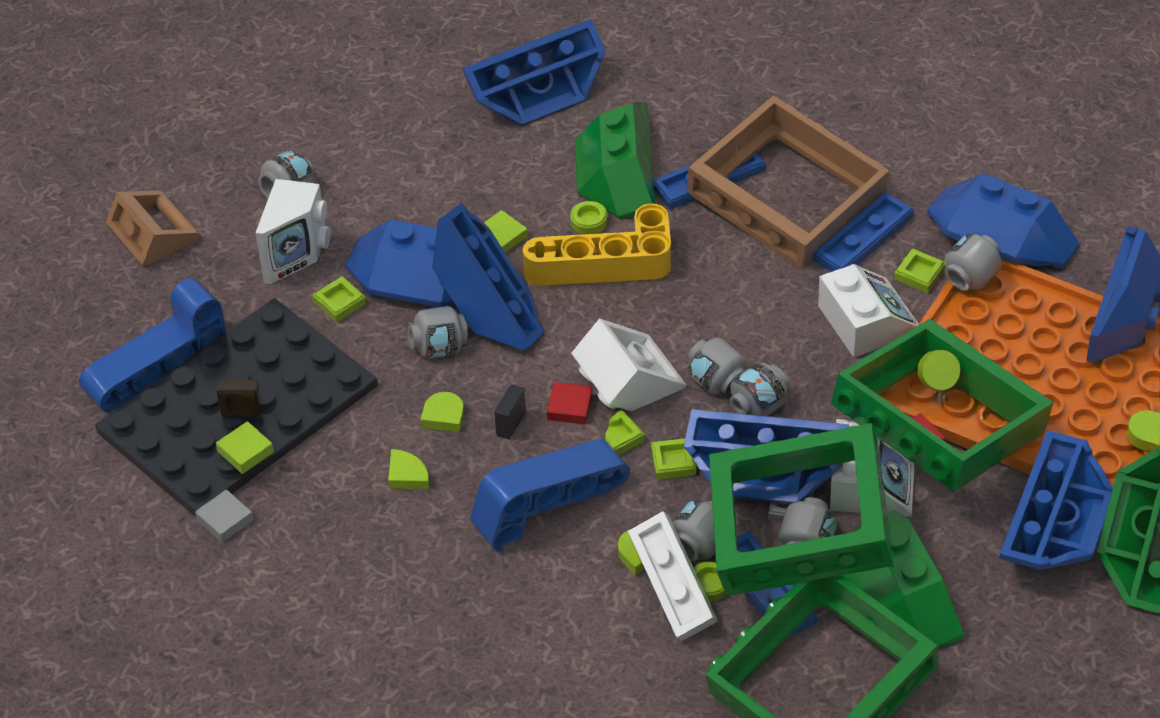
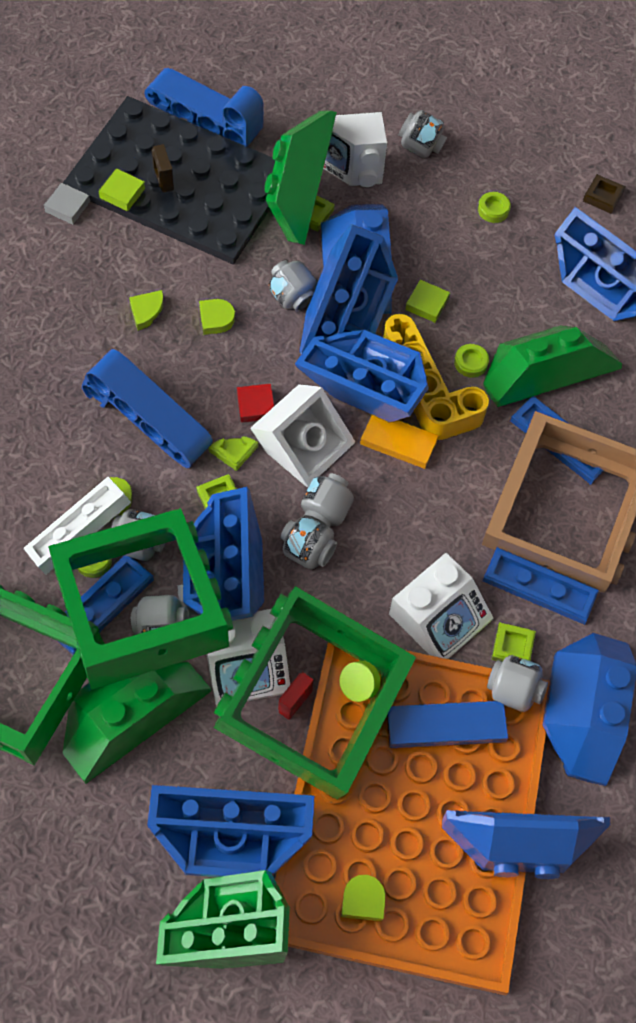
camera: 65 degrees right, 15 degrees up
(139, 230) = (352, 46): medium nougat tile -> none
(313, 275) = (298, 173): none -> green wedge
(404, 150) = (494, 207): none -> lime tile
(428, 61) = (604, 193): none -> dark brown tile
(510, 411) = (223, 359): black tile -> none
(592, 282) = (367, 372): none -> blue wedge
(661, 297) = (399, 440): none -> light orange tile
(997, 320) = (447, 724): none -> blue tile

